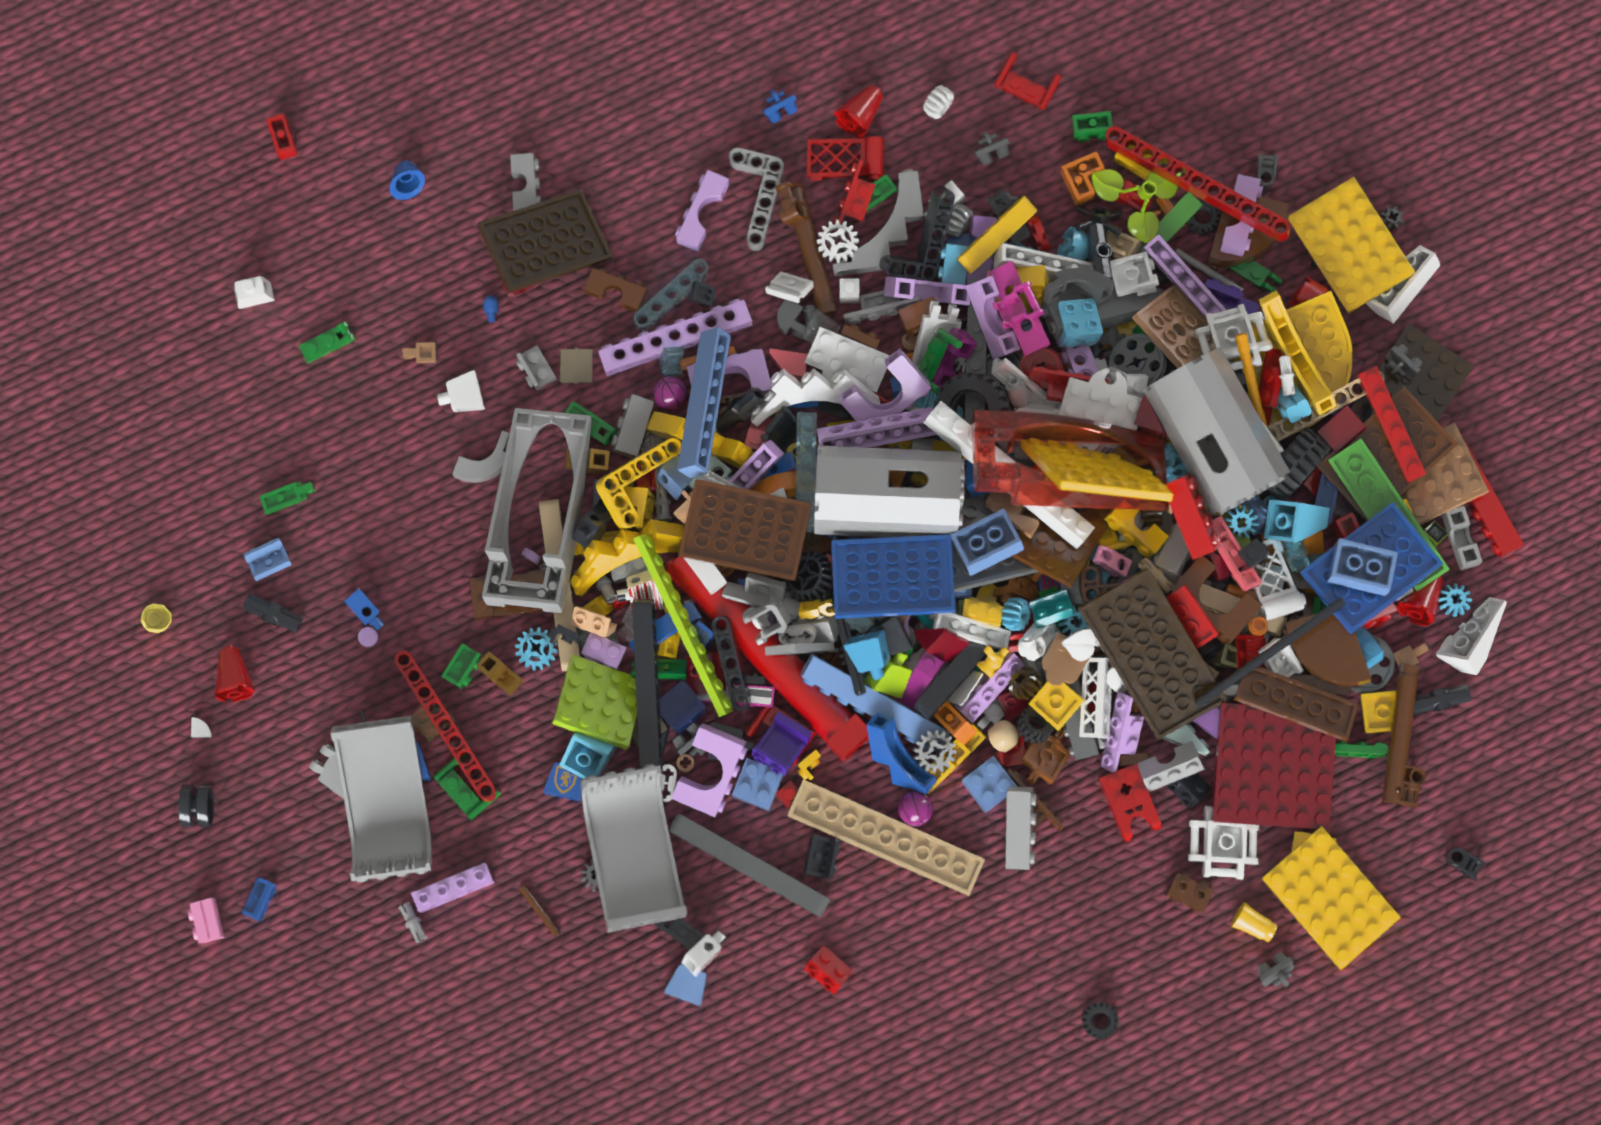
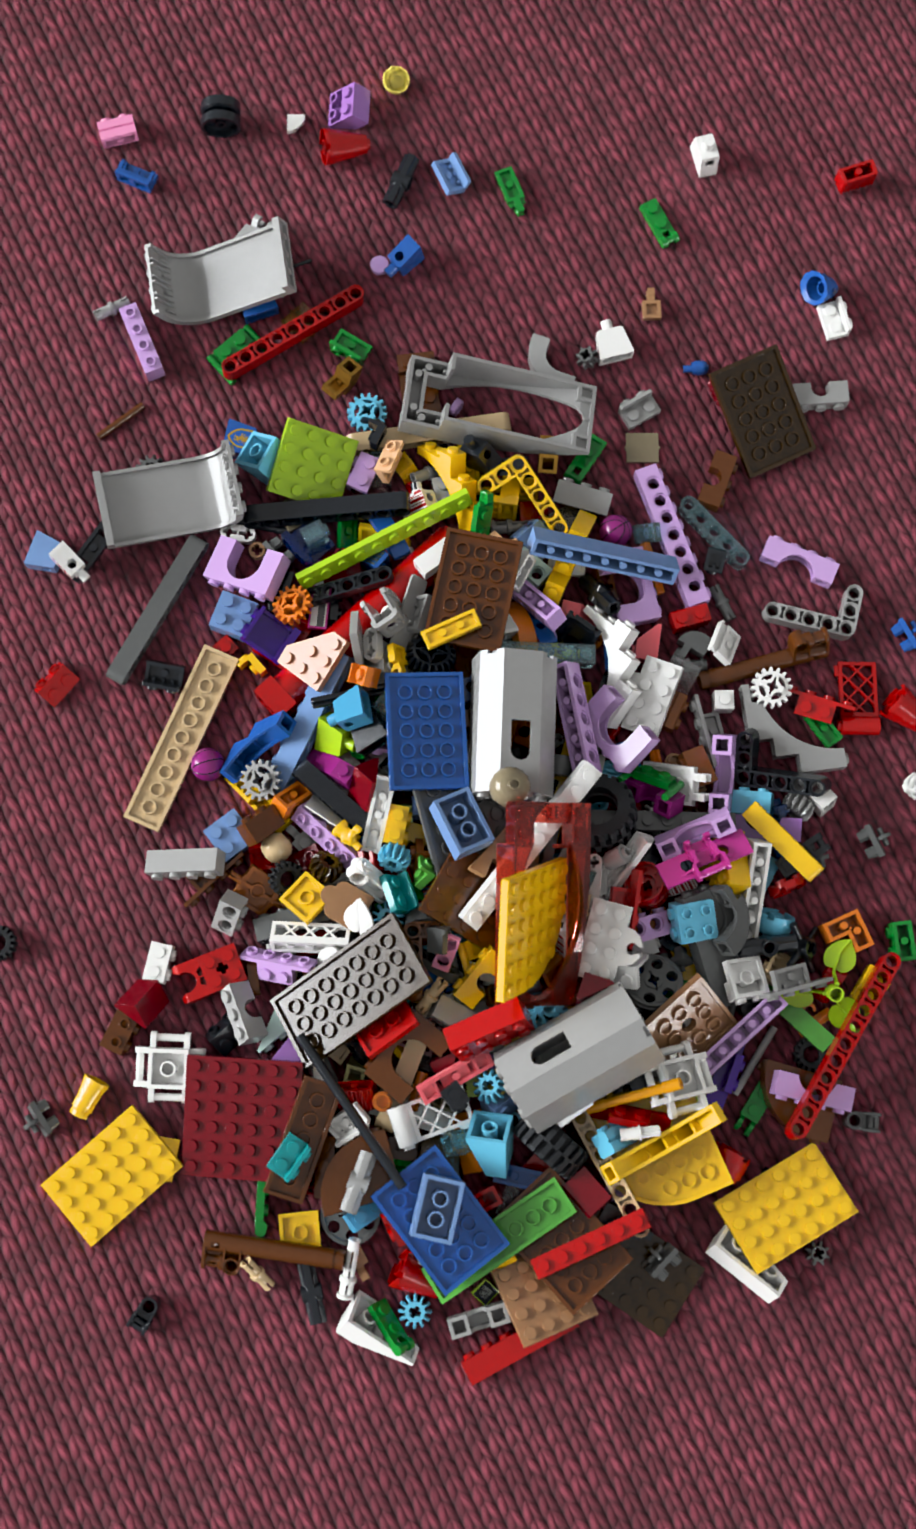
camera: 80 degrees right, 0 degrees up
(186, 669) = (349, 107): none -> medium lavender slope
(439, 165) = (835, 319): none -> white bracket
(483, 416) = (584, 354): none -> dark grey gear
(661, 524) = (483, 513): none -> green hinge
(674, 698) = (315, 534): none -> clear light blue brick
(745, 288) = (722, 603): none -> dark grey pin
(758, 728) = (292, 605): none -> orange gear
(762, 321) = (689, 618): none -> red brick
(788, 551) = (451, 629): none -> yellow tile
(813, 692) = (314, 658): none -> plate
(834, 639) = (364, 675): none -> orange brick
(957, 488) = (509, 785): none -> dark tan cylinder
(964, 236) = (780, 810): none -> dark blue plate
(982, 750) = (260, 825): none -> reddish brown brick
(1032, 584) = (424, 873): none -> bright green bracket
(1069, 781) = (230, 913): none -> light grey brick
(1101, 567) = (438, 939): none -> dark grey tile
(1118, 856) = (159, 962): none -> white bracket
(1135, 229) = (790, 979): none -> light grey bracket
(1158, 870) = (143, 1001): none -> dark red slope
(1315, 712) = (289, 1157): none -> teal bracket
(1338, 645) = (358, 1182): none -> light grey piece
(1423, 751) = (257, 1273): none -> tan pin
(1425, 663) = (349, 1278): none -> white pin
(1471, 622) = (390, 1327): none -> green plate

